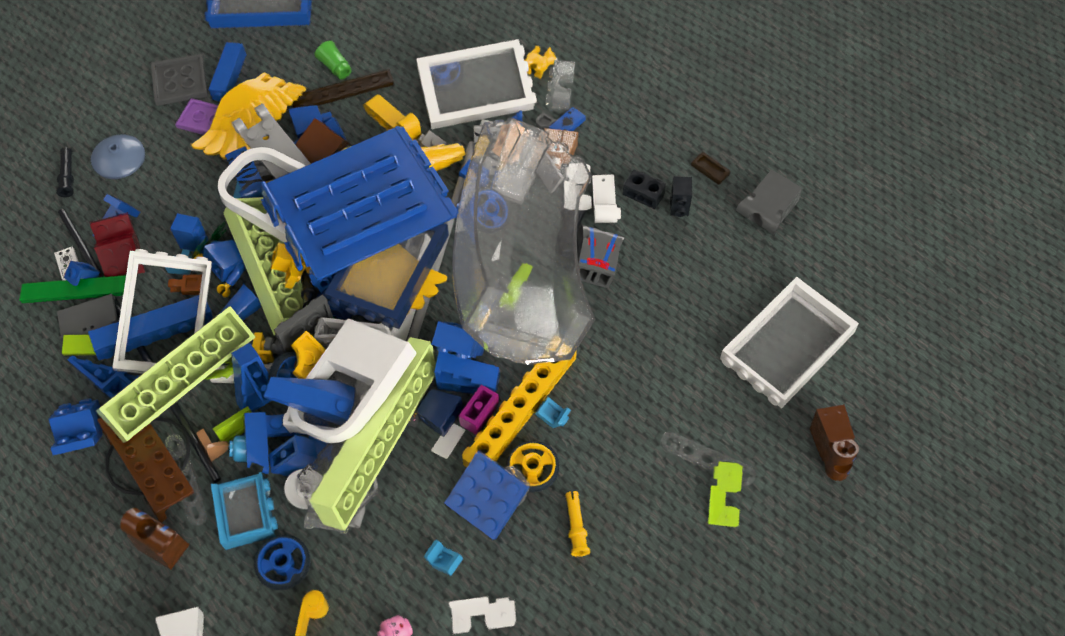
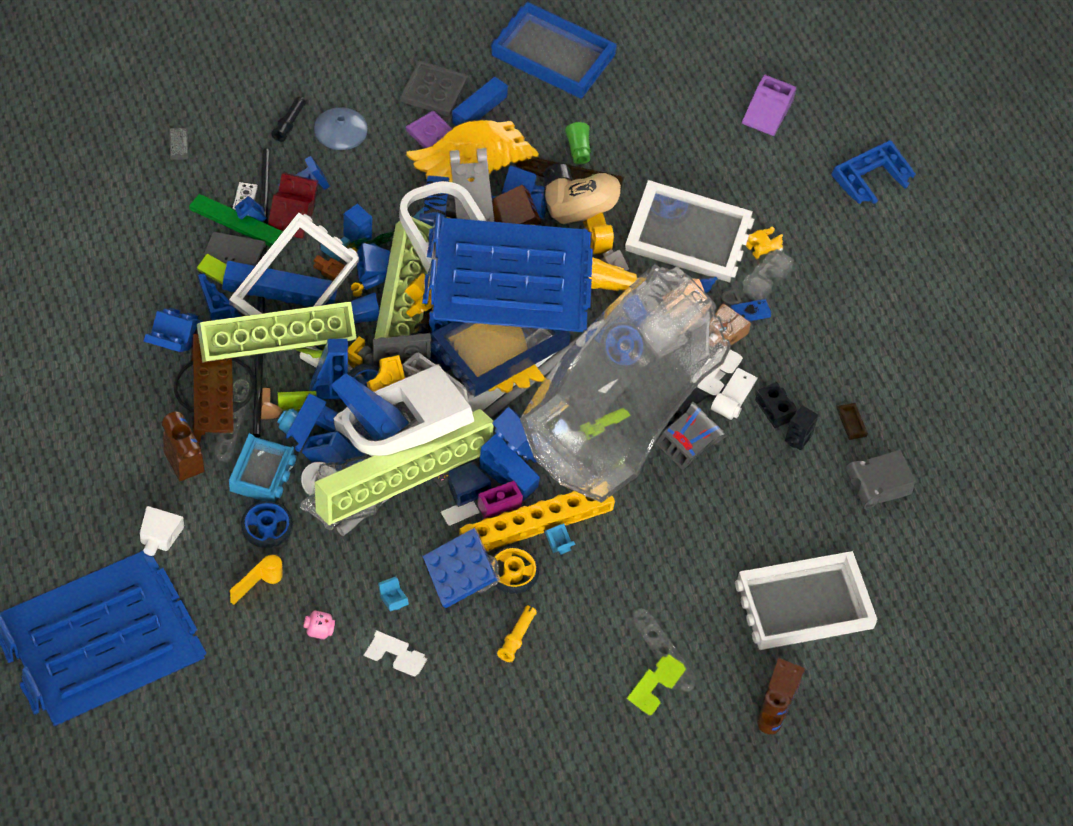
camera: 25 degrees right, 5 degrees down
(367, 105) = (579, 198): none -> tan piece

